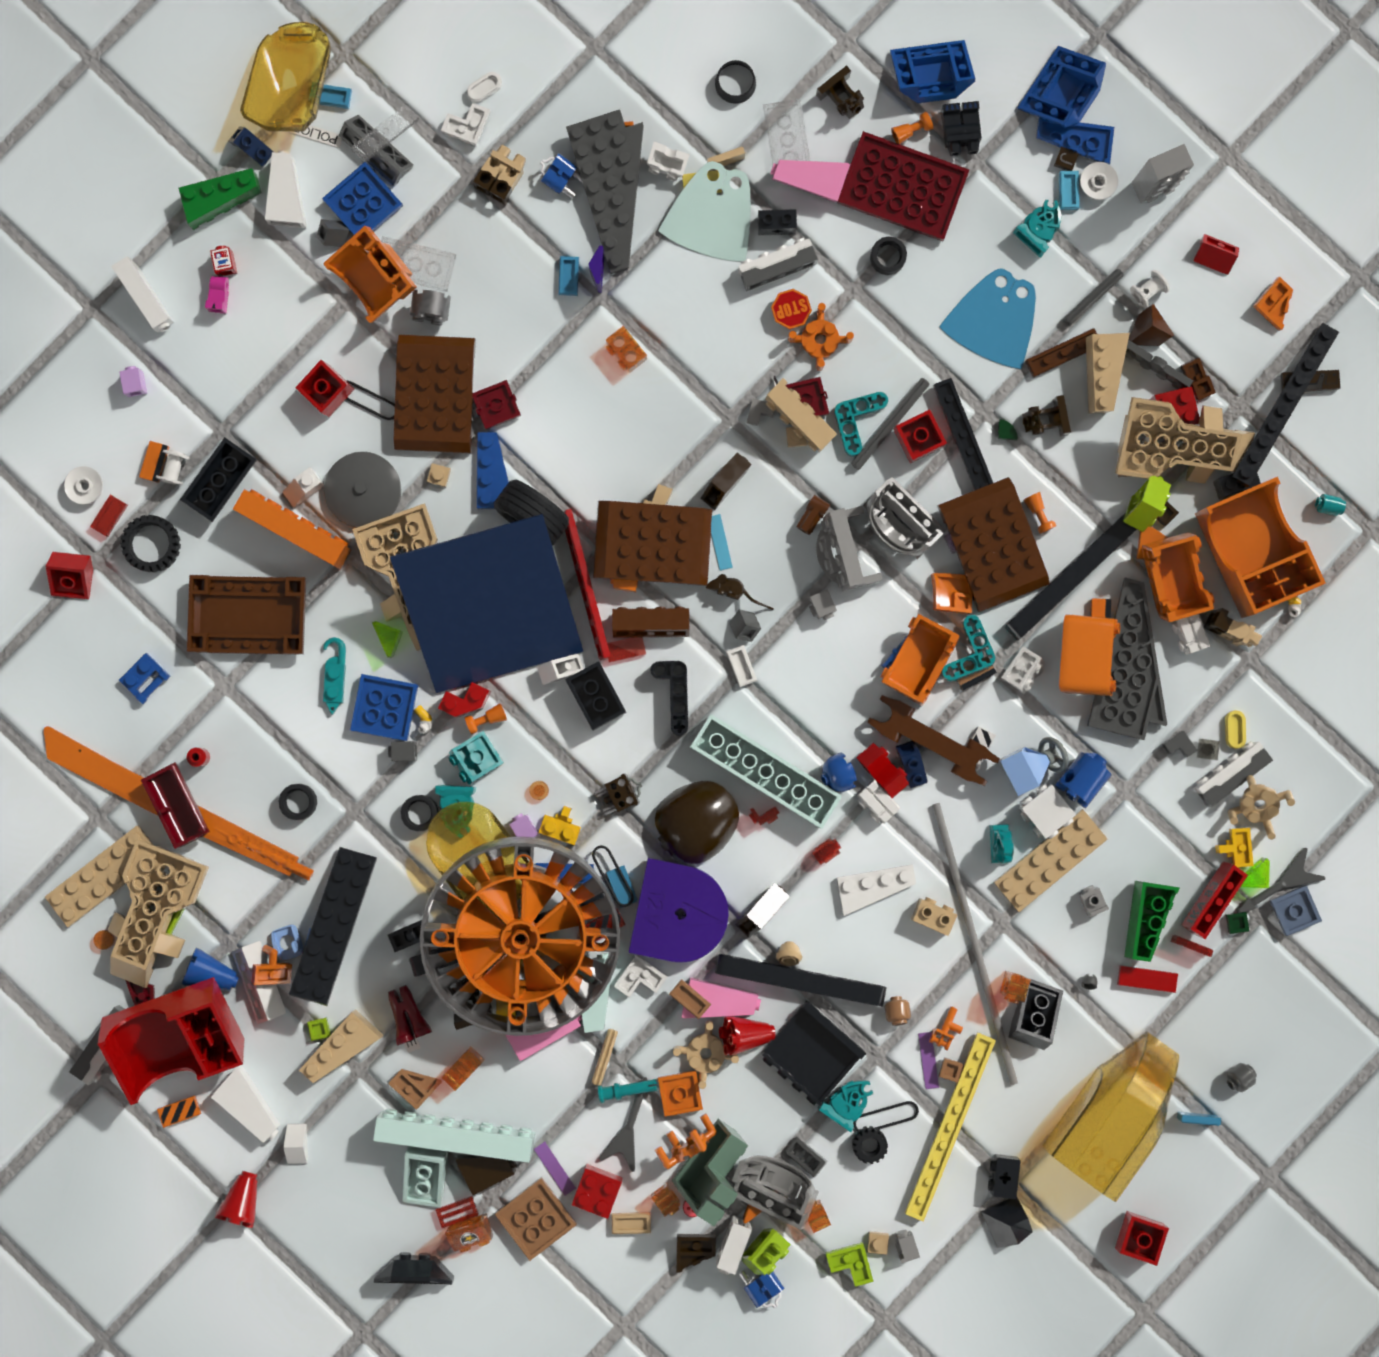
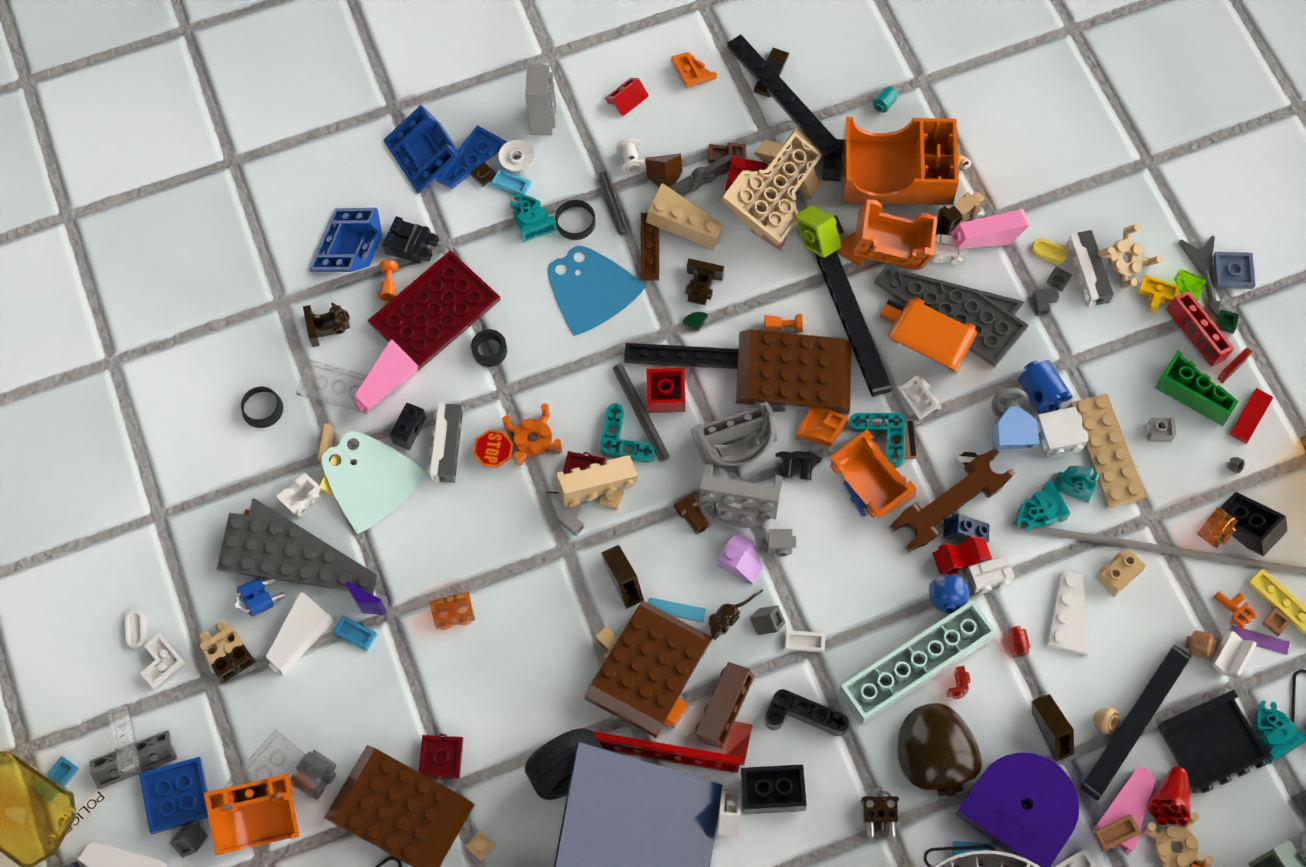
camera: 60 degrees left, 20 degrees down
(490, 470) = (503, 792): blue wing -> none
(546, 228) = (298, 633): none -> white slope
(793, 577) = (741, 558): none -> lavender slope
(900, 1041) = (1232, 654): none -> white panel
(913, 592) = (807, 459): none -> black connector
(965, 823) = (1042, 508): none -> teal piece
(1066, 252) = (575, 203): none -> black tyre
(1224, 664) = (991, 230): none -> bright pink slope

